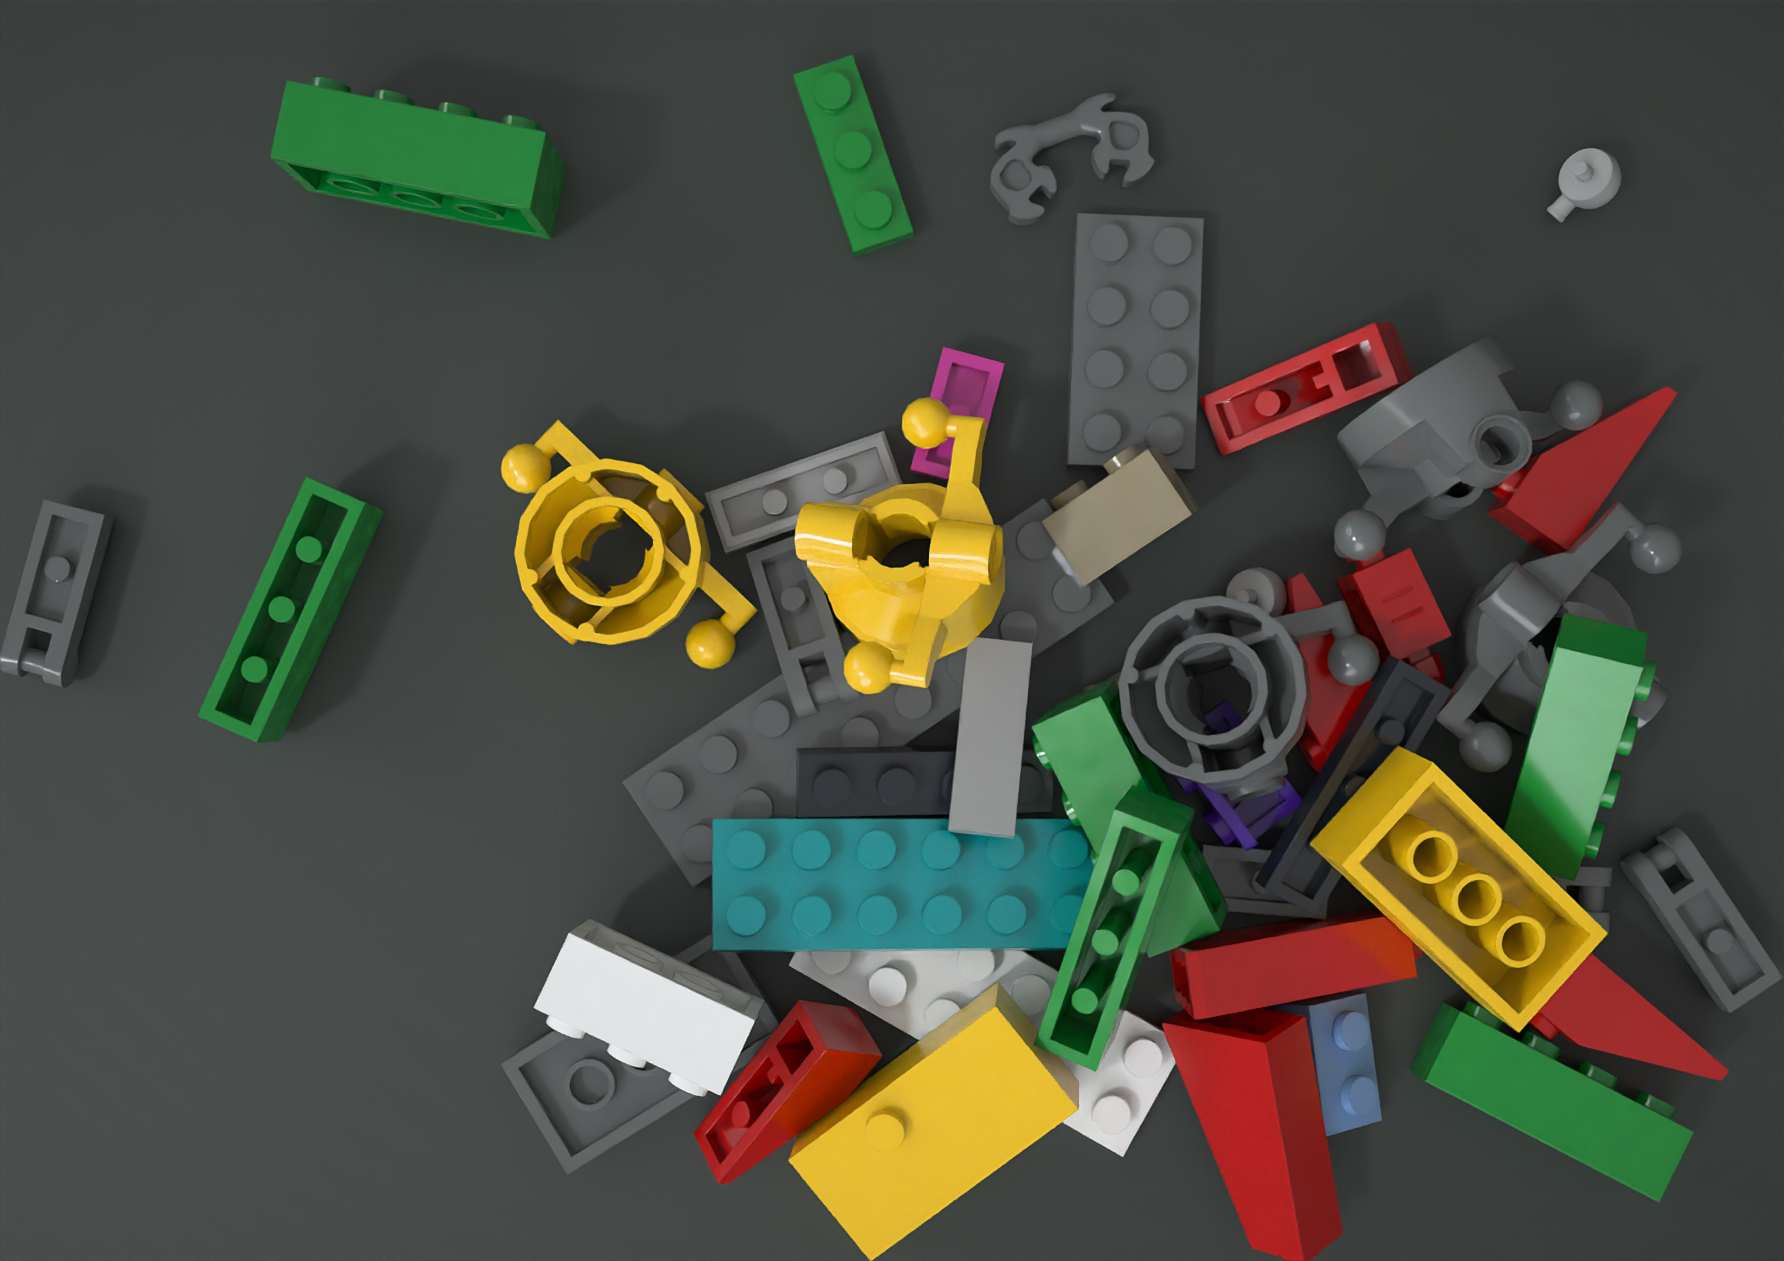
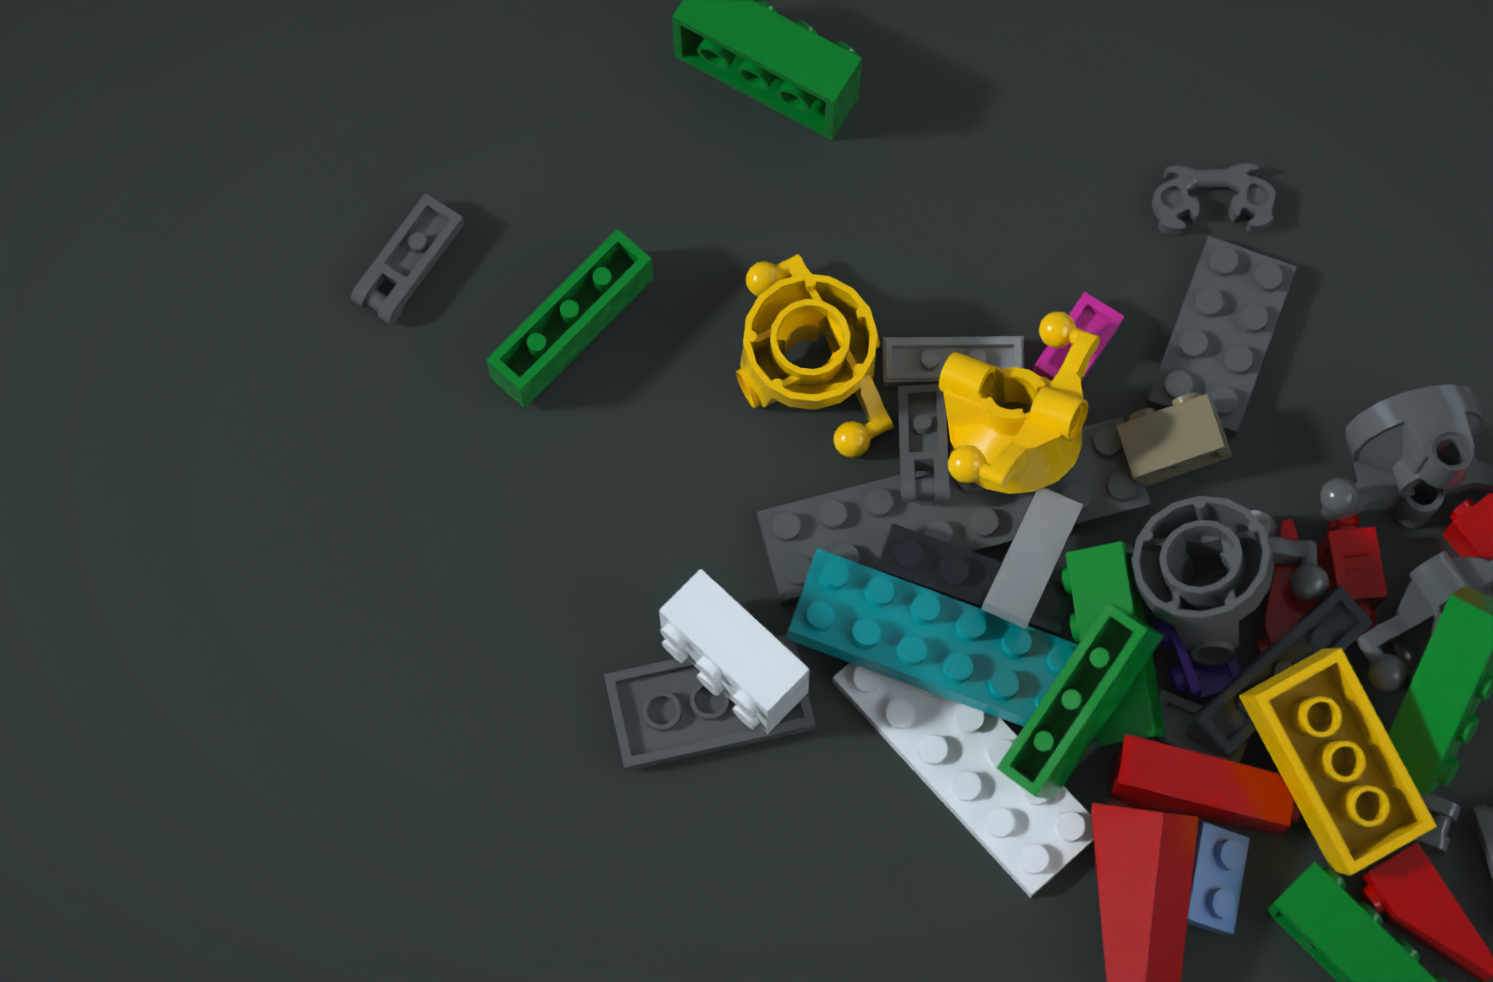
camera: 20 degrees right, 15 degrees down
(788, 1085) = (806, 756): red slope -> none
(853, 155) = (1062, 151): green plate -> none
(935, 1122) = (904, 810): yellow brick -> none
(1308, 387) = (1329, 399): red slope -> none

